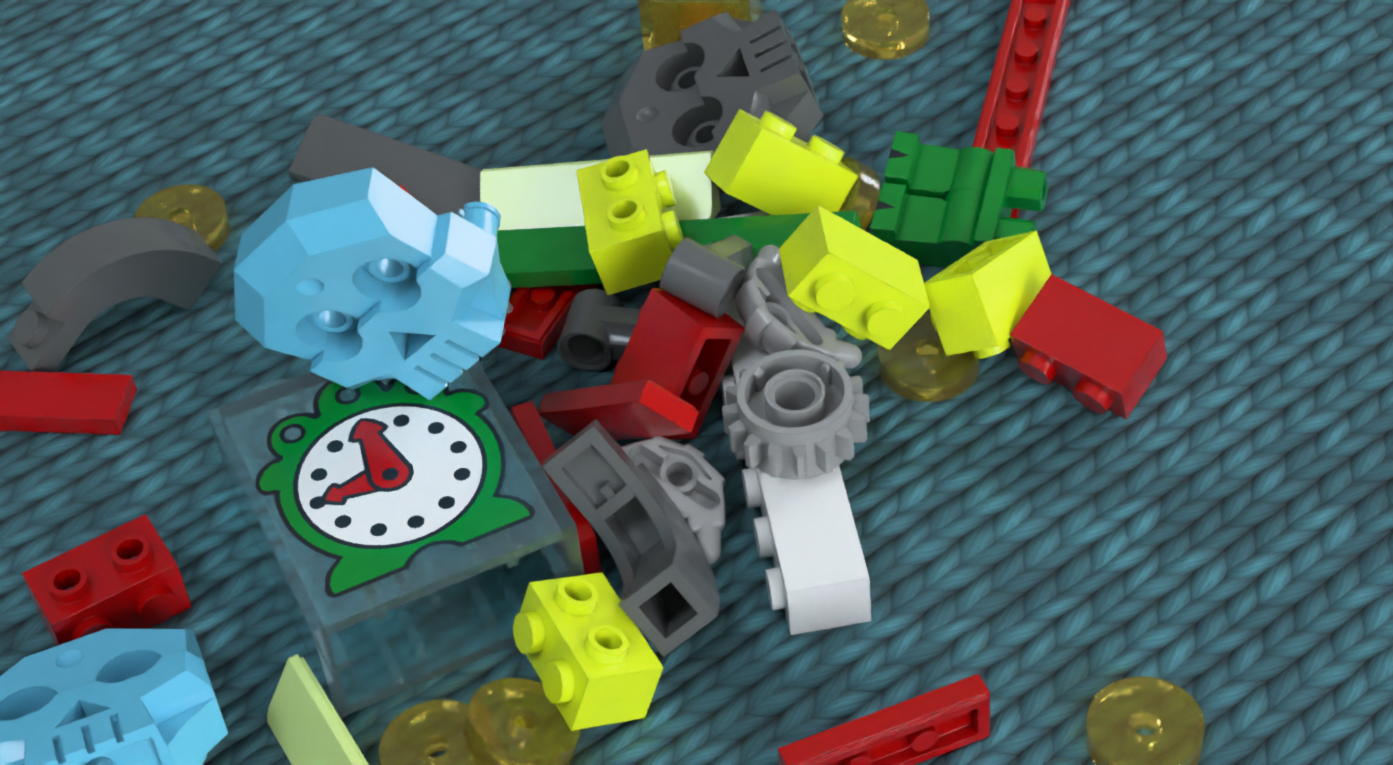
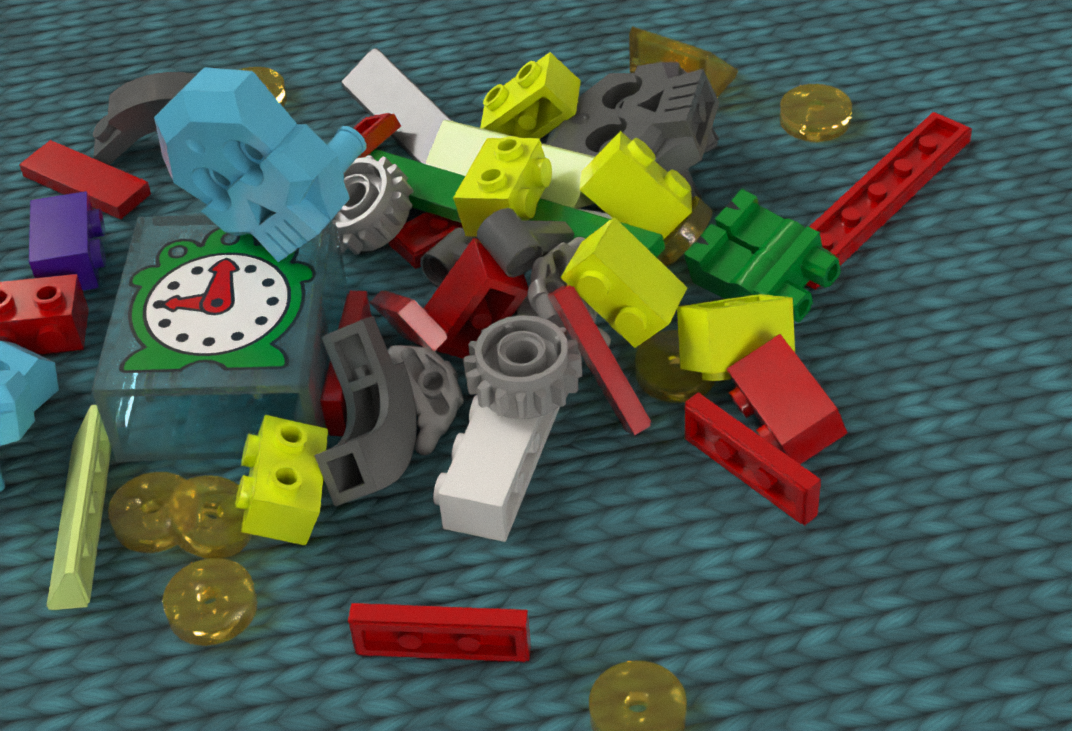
camera: 25 degrees right, 0 degrees up
(87, 478) = (66, 238): none -> dark purple brick
(571, 113) = (532, 101): none -> neon yellow brick
(889, 387) = (599, 359): none -> red tile
(1087, 422) = (752, 459): none -> red tile

